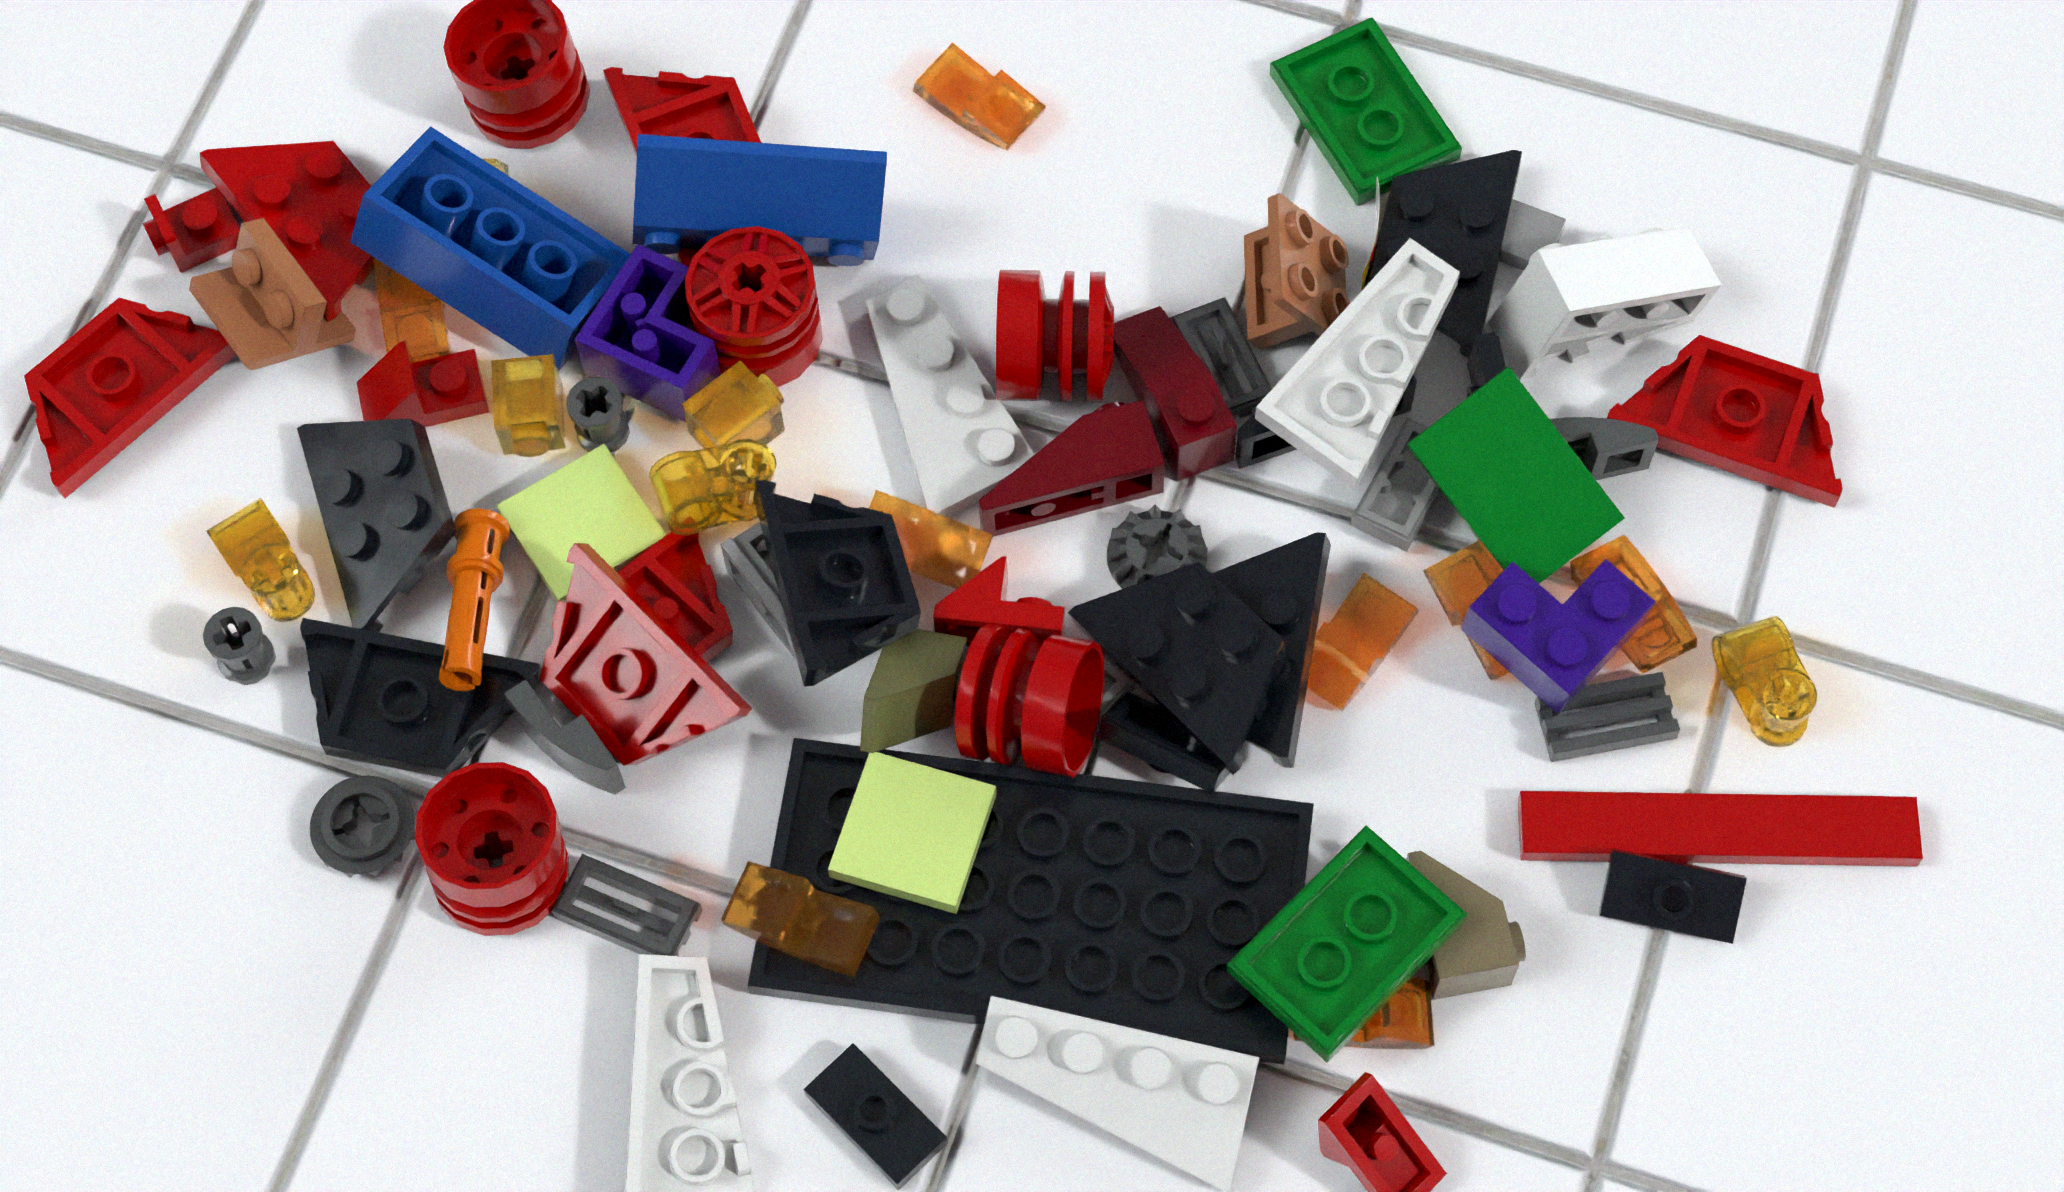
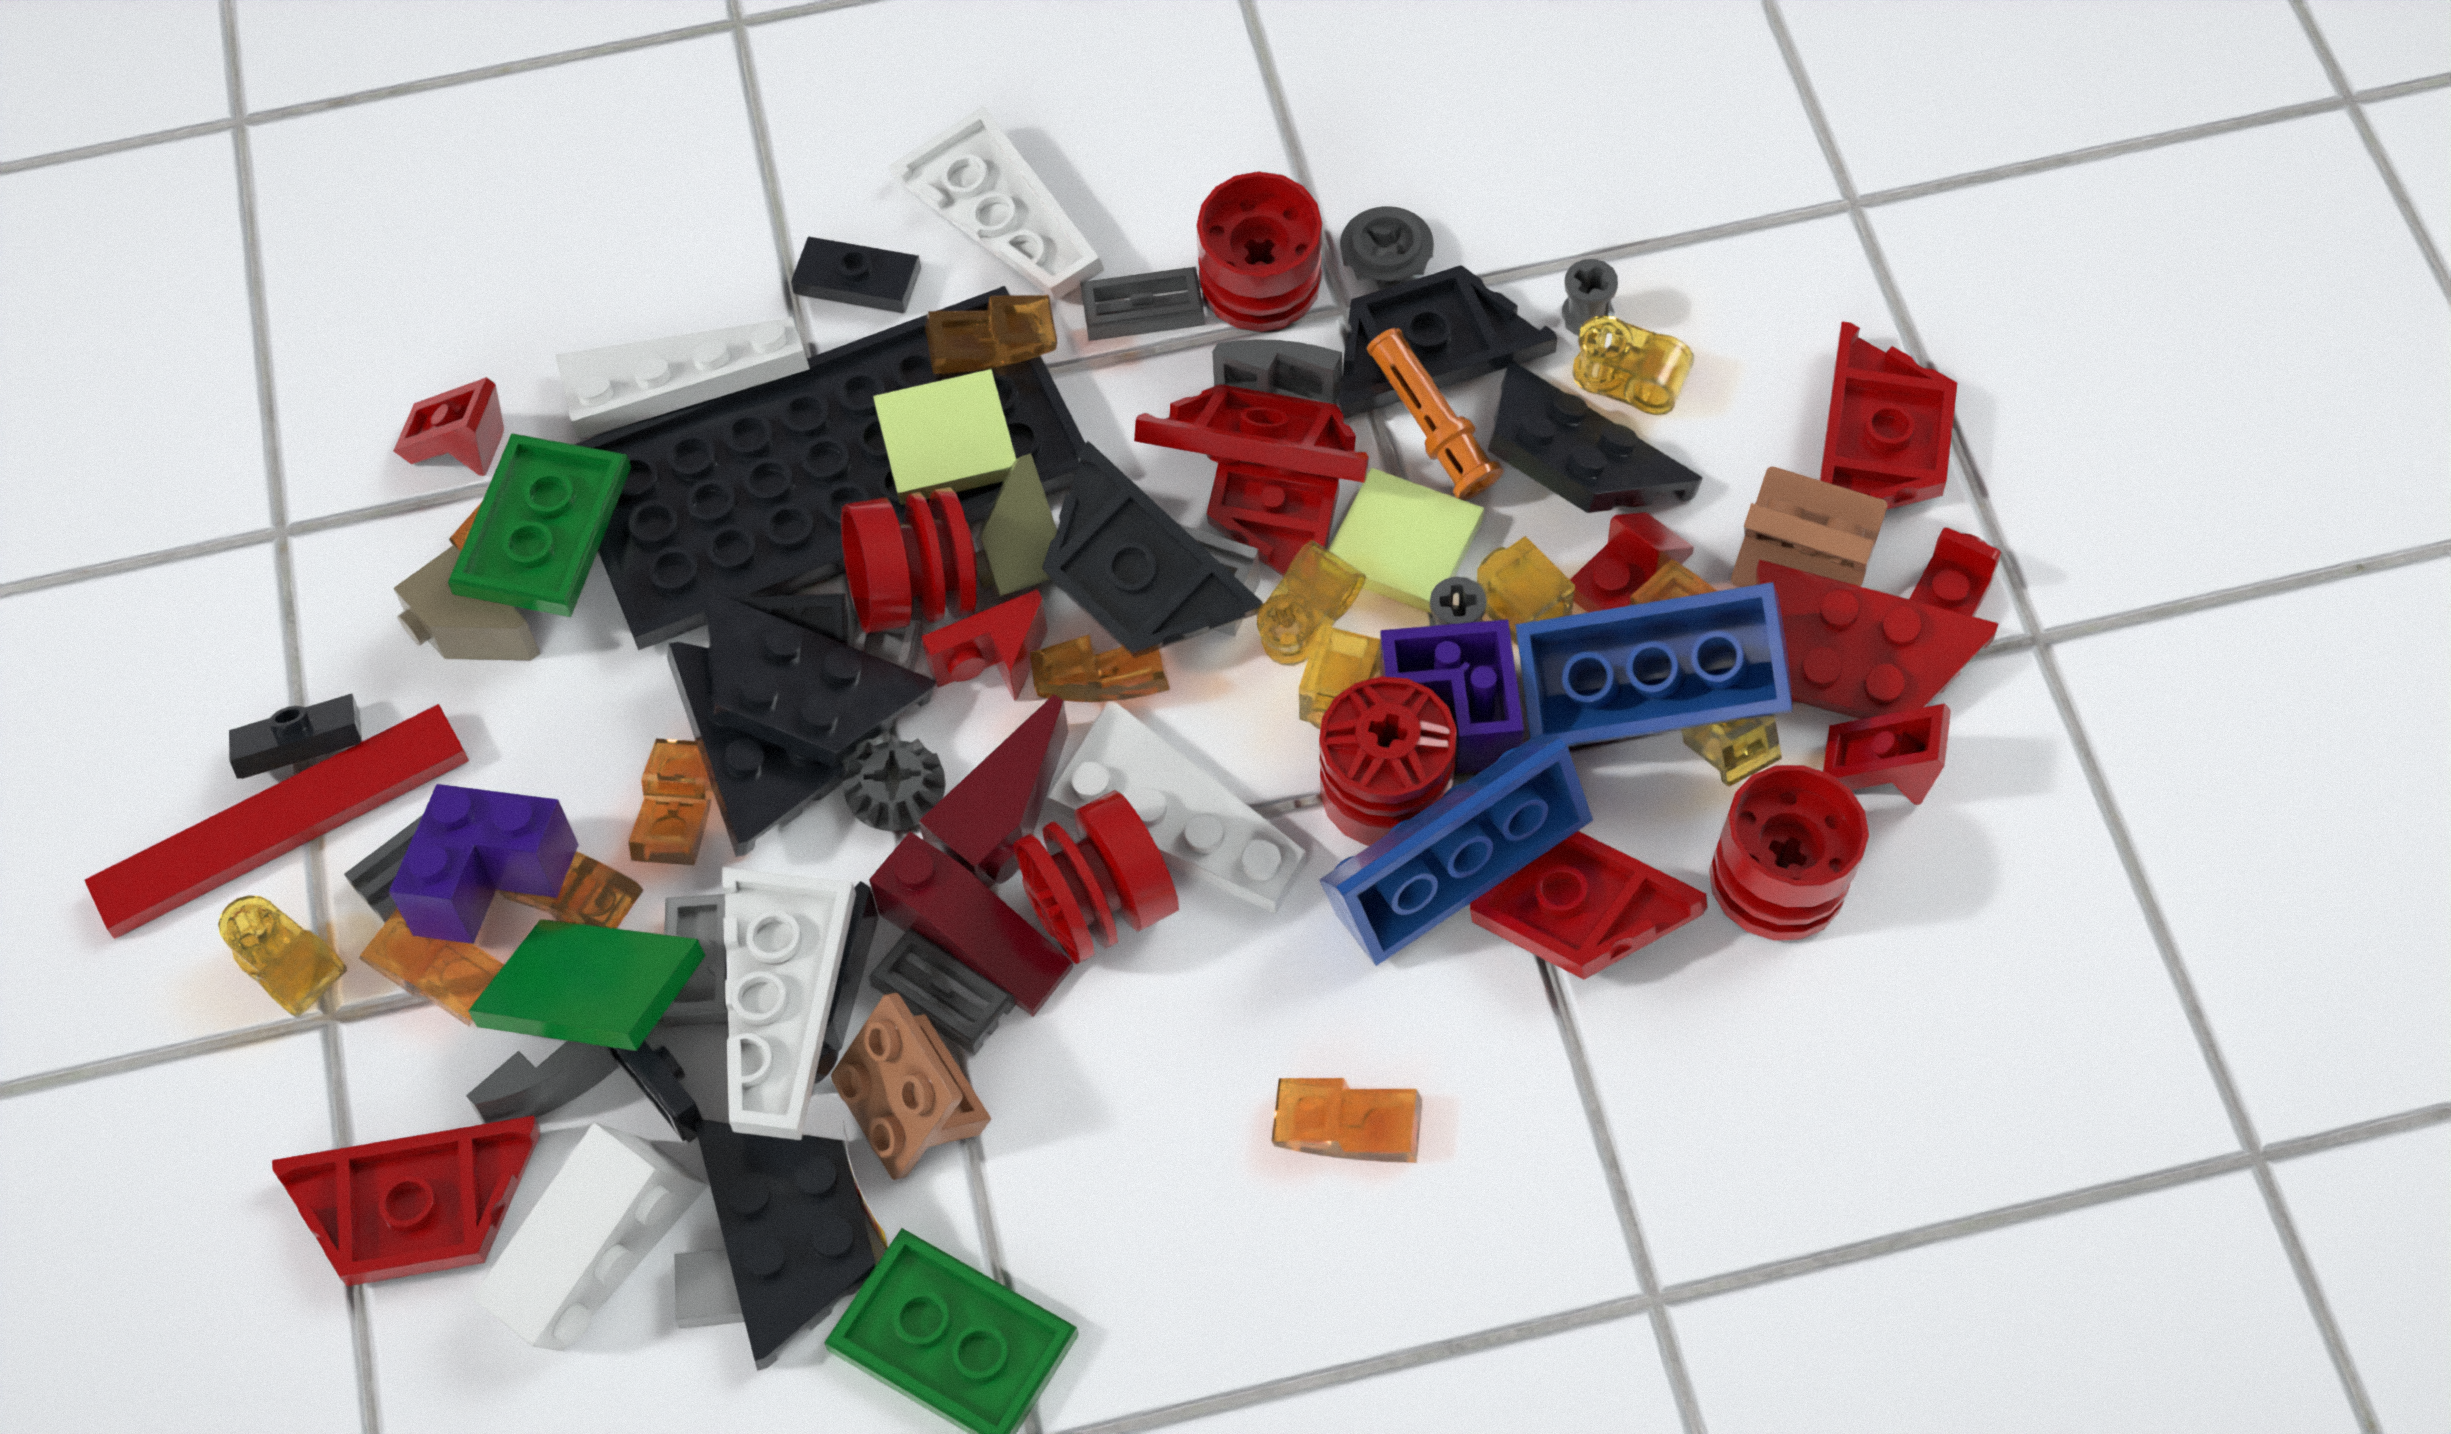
camera: 150 degrees right, 5 degrees down
(368, 106) = (1891, 748): none -> red slope

